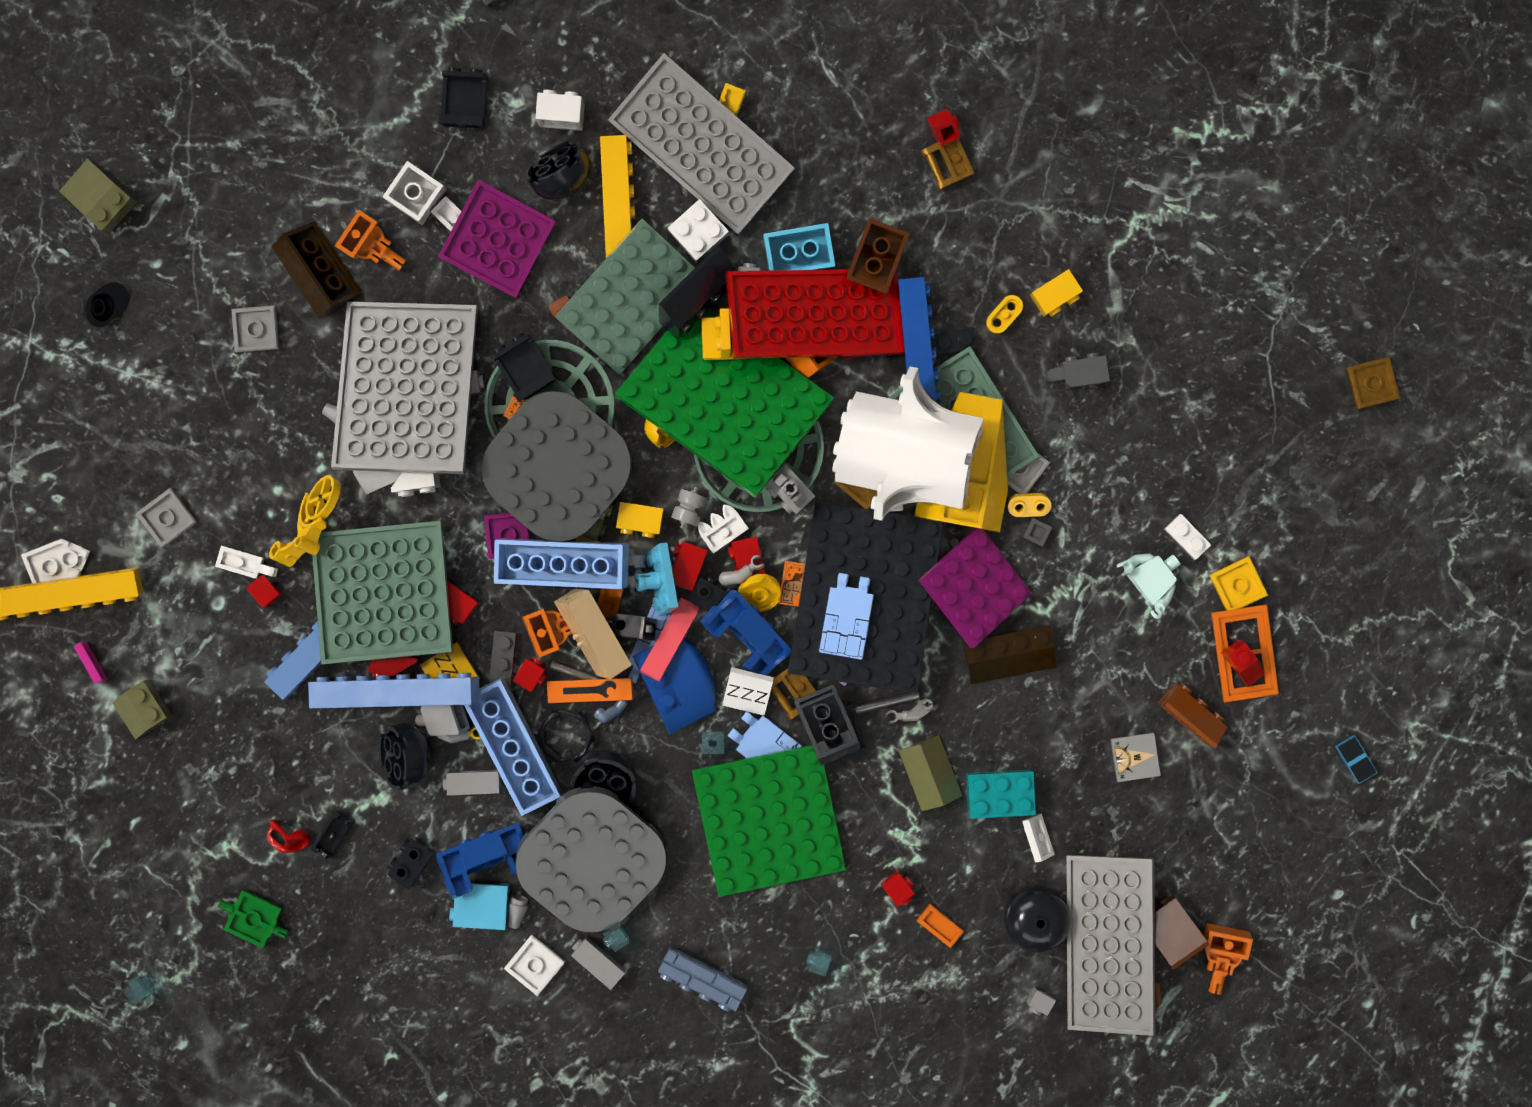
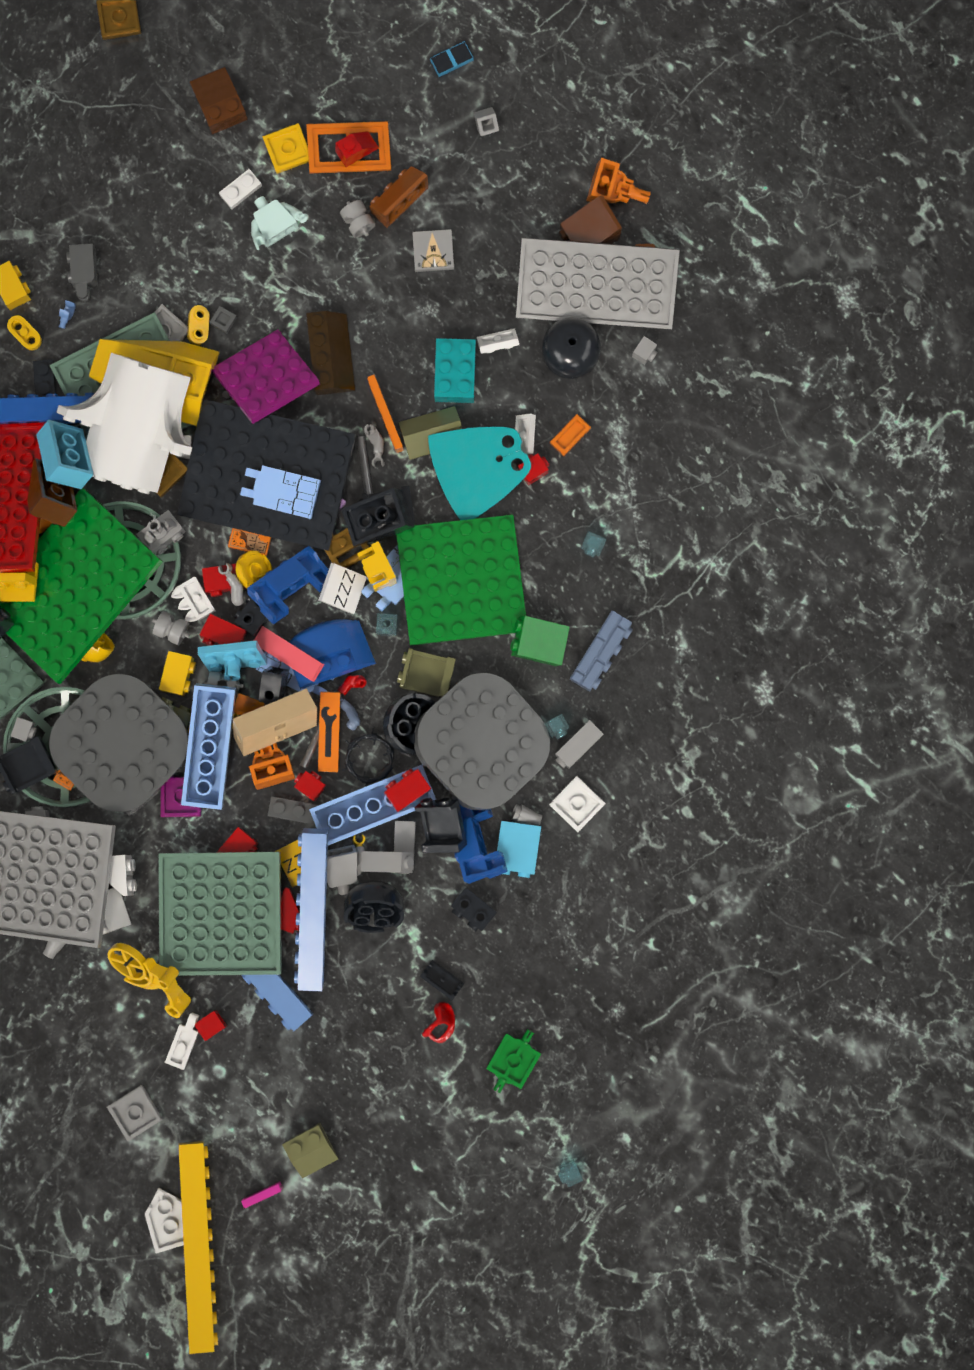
camera: 90 degrees left, 5 degrees down
(451, 768) = (387, 862): none -> light grey brick
(493, 825) = (442, 825): none -> black panel
(529, 784) = (407, 790): none -> red brick
(561, 362) = (23, 729): none -> light grey plate
(647, 709) = (352, 681): none -> red arm
(663, 790) = (426, 673): none -> olive panel
(707, 912) = (539, 640): none -> brick
(772, 730) = (377, 567): none -> yellow panel
(822, 367) = (50, 499): none -> reddish brown slope
(866, 377) = (64, 454): none -> medium azure brick
(890, 819) = (469, 467): none -> teal piece
(935, 876) = (526, 428): none -> white plate
(946, 720) = (385, 414): none -> orange tile
(1030, 358) = (67, 313): none -> medium blue piece
(1160, 673) = (355, 215): none -> light grey wheel
(1286, 805) = (489, 125): none -> light grey plate
(1287, 503) = (218, 100): none -> reddish brown slope

